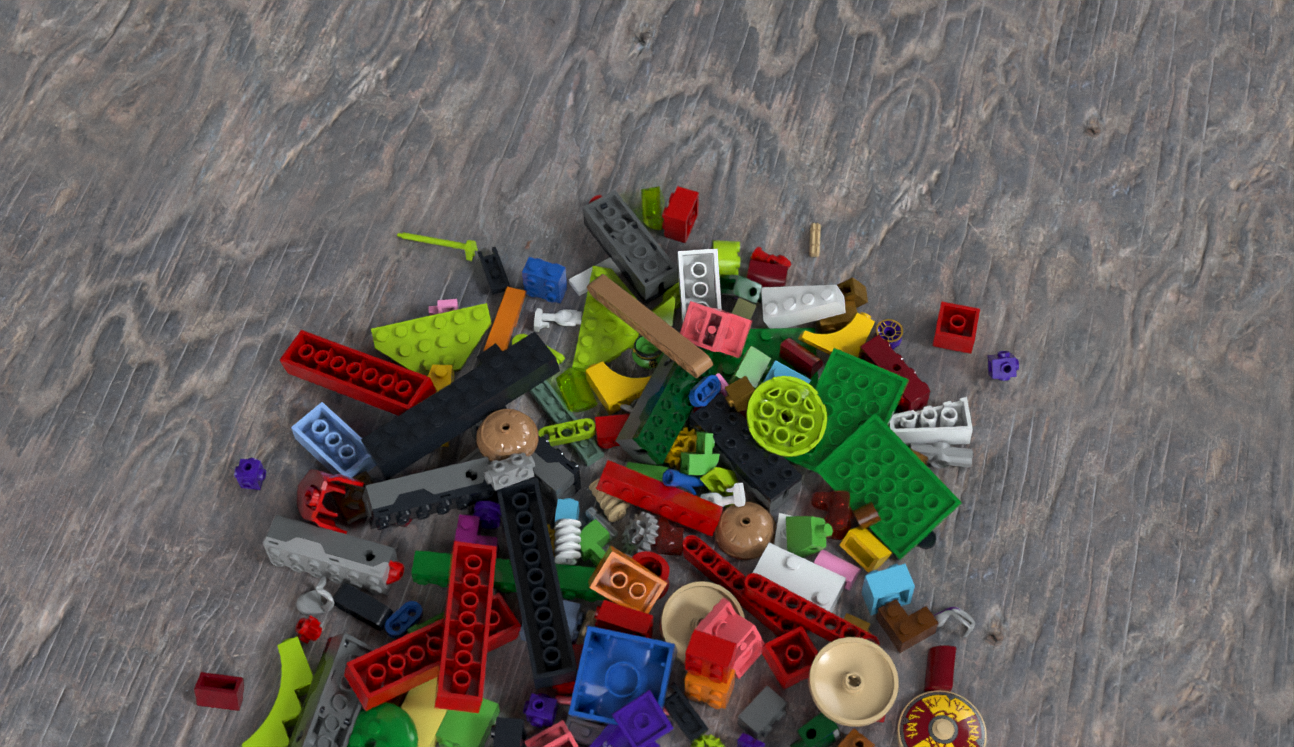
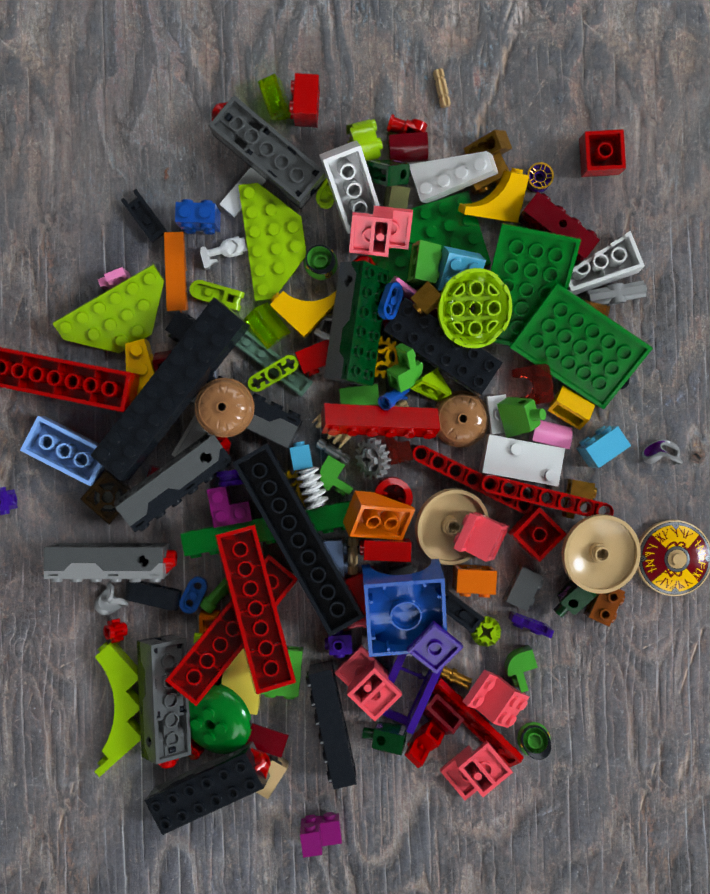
camera: 20 degrees left, 30 degrees up
(219, 691) = (62, 706): dark red brick -> none
(311, 494) = (80, 532): red piece -> none
(469, 247) = (111, 198): lime piece -> none
(509, 471) = (240, 446): light grey brick -> none
(650, 326) = (319, 249): medium nougat beam -> none
(667, 309) = (321, 218): lime slope -> none
(710, 656) = (477, 577): red brick -> none
(738, 496) = (430, 402): white piece -> none
(799, 357) = (466, 232): dark red brick -> none
(867, 515) = (567, 380): reddish brown brick -> none
(903, 629) = (626, 476): reddish brown brick -> none
(940, 668) = (661, 502): dark red brick -> none
(1002, 365) = (653, 183): dark purple brick -> none

